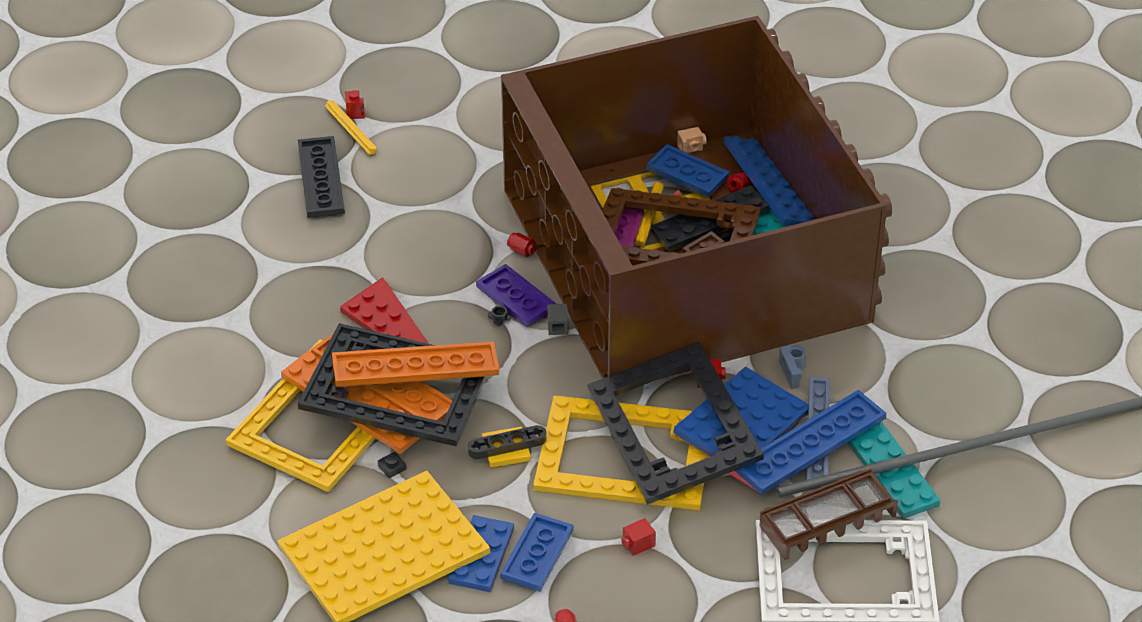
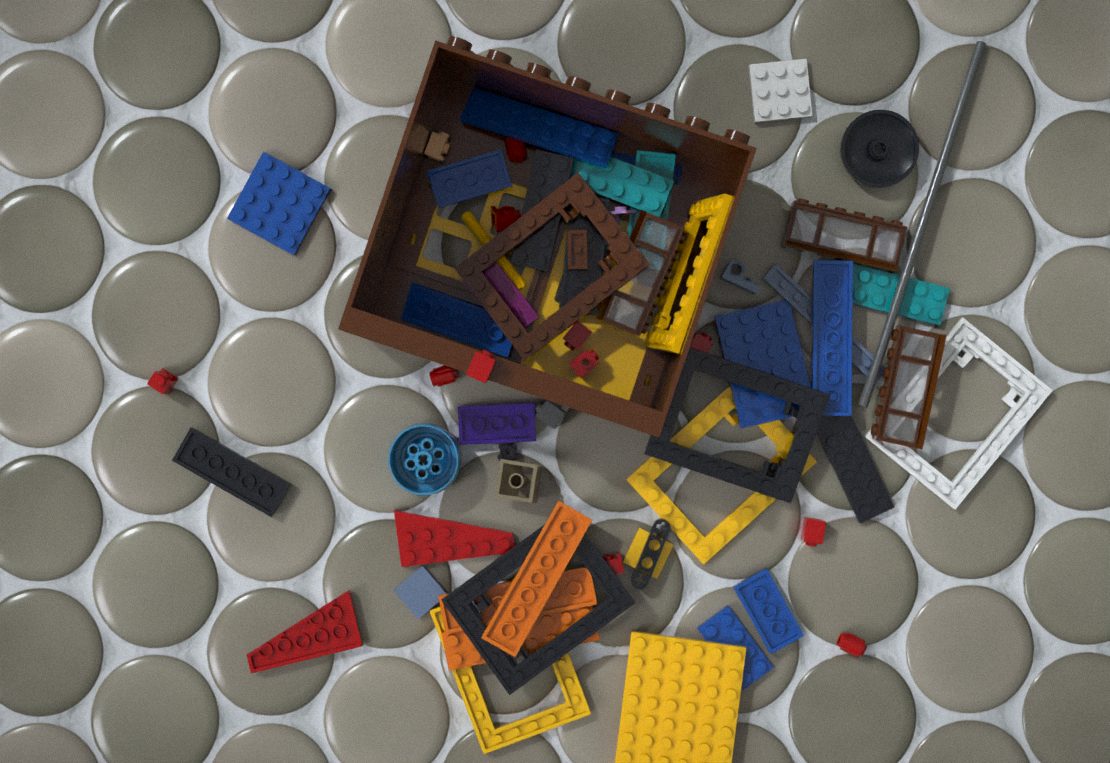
camera: 55 degrees left, 45 degrees up
(230, 289) = (319, 634): none -> red wing
(325, 325) = (420, 592): none -> sand blue tile
(351, 127) = (186, 401): yellow axle -> none
(392, 464) = (600, 648): black plate -> none
(444, 251) = (440, 440): none -> dark azure wheel
(475, 427) = (614, 562): none -> red brick
(485, 325) = (518, 481): none -> dark tan slope
(556, 148) = (481, 366): none -> red brick
(723, 533) = (854, 467): none -> black plate
(906, 406) = (844, 235): none -> window
(962, 306) = (780, 90): none -> white plate
(992, 381) = (879, 148): none -> black dish

